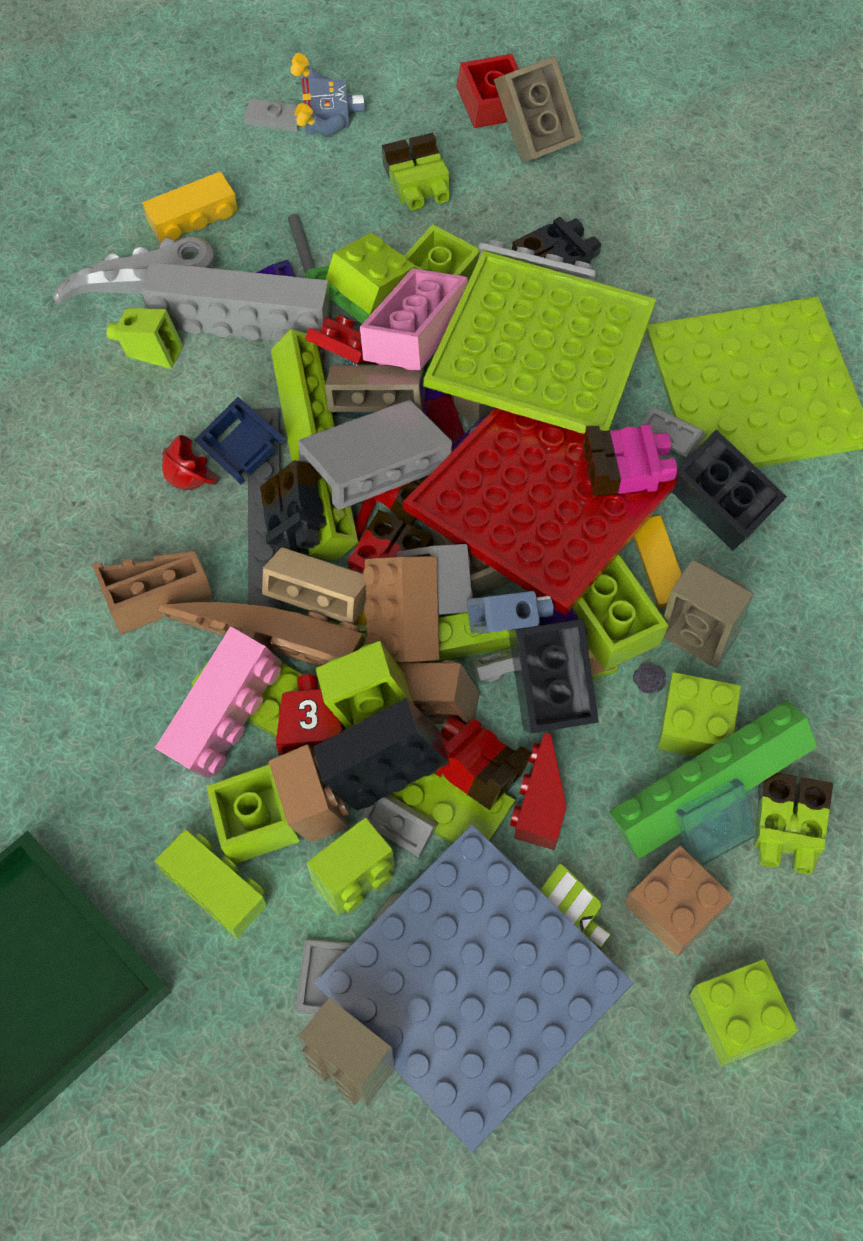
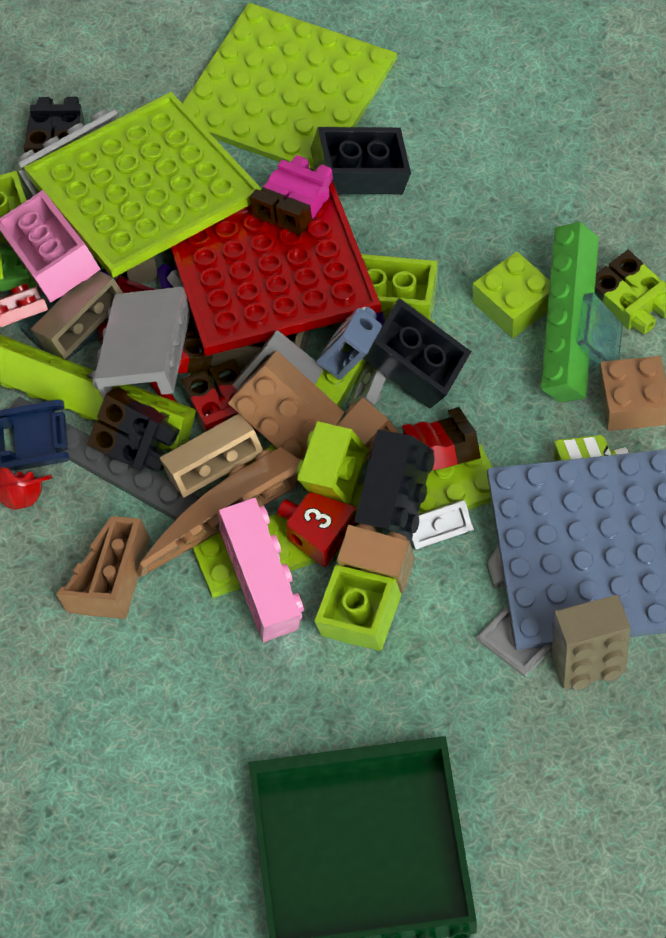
camera: 50 degrees left, 5 degrees down
(212, 882) = (387, 669): lime brick -> none
(352, 867) = (455, 566): lime brick -> none
(544, 802) = (500, 427): red slope -> none
(645, 684) = (458, 312): plate -> none
(657, 559) = (382, 242): yellow tile -> none
(683, 436) = (265, 164): light grey plate -> none
(705, 613) = (450, 231): dark tan brick -> none

